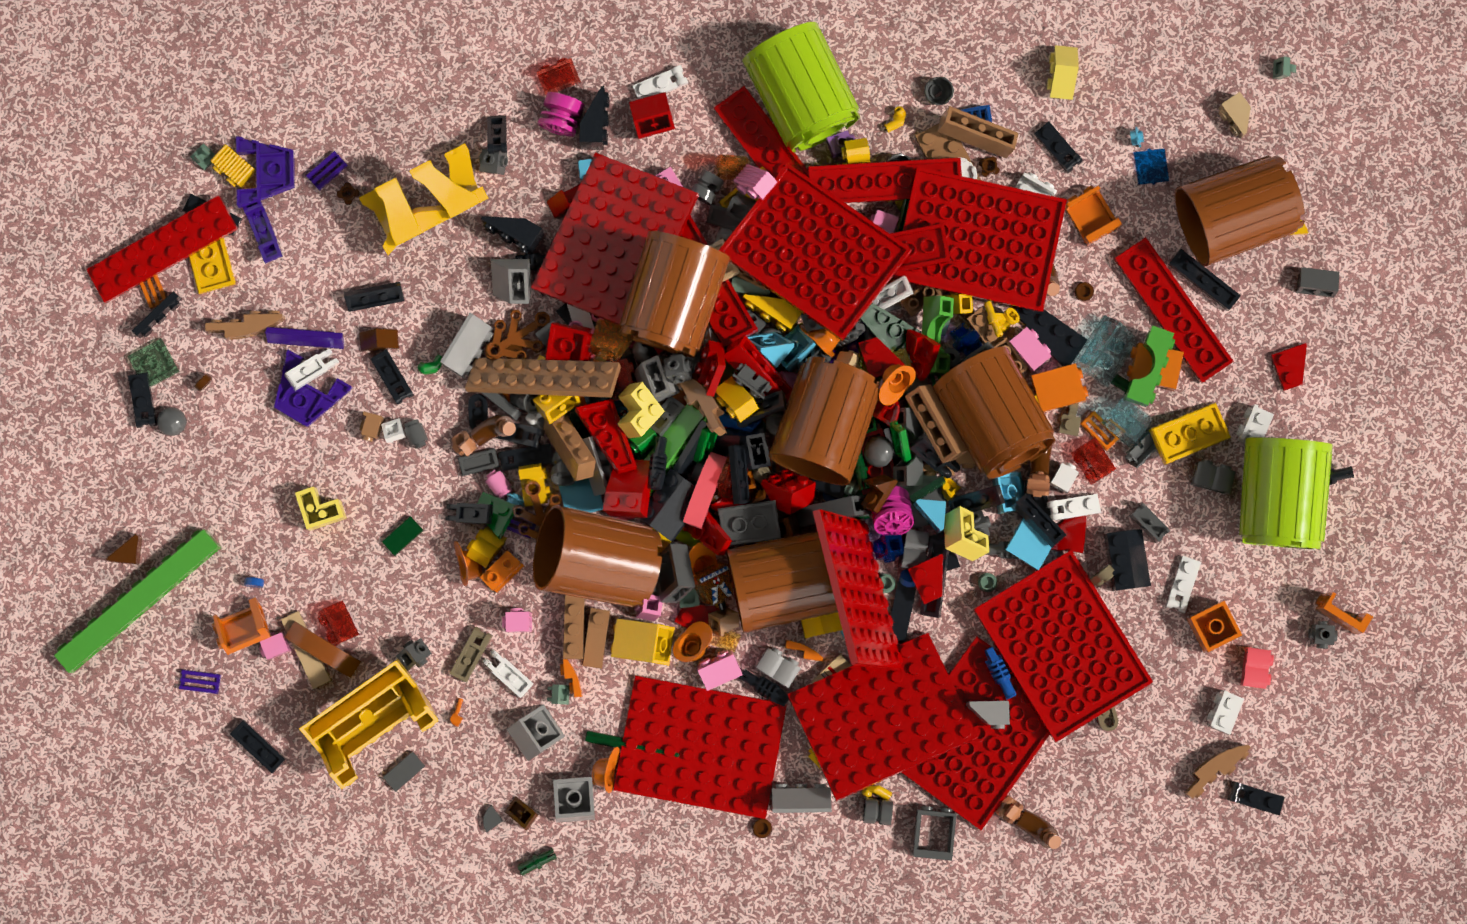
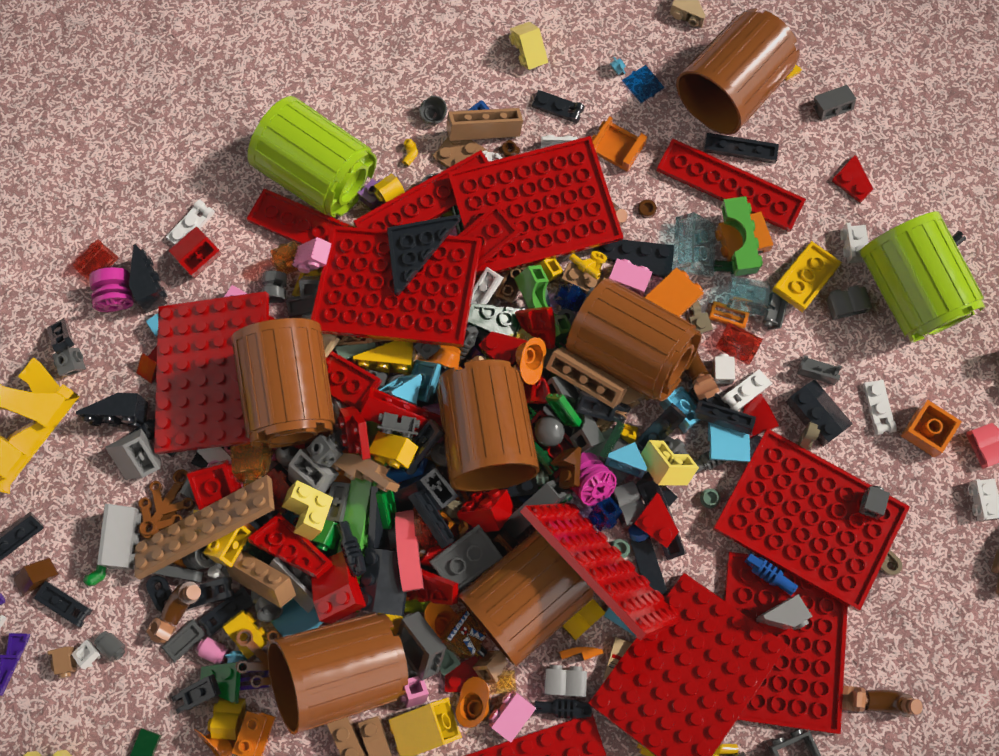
camera: 25 degrees left, 10 degrees down
(848, 224) = (413, 246): none -> black tile
(1123, 661) = (874, 502): none -> dark grey brick

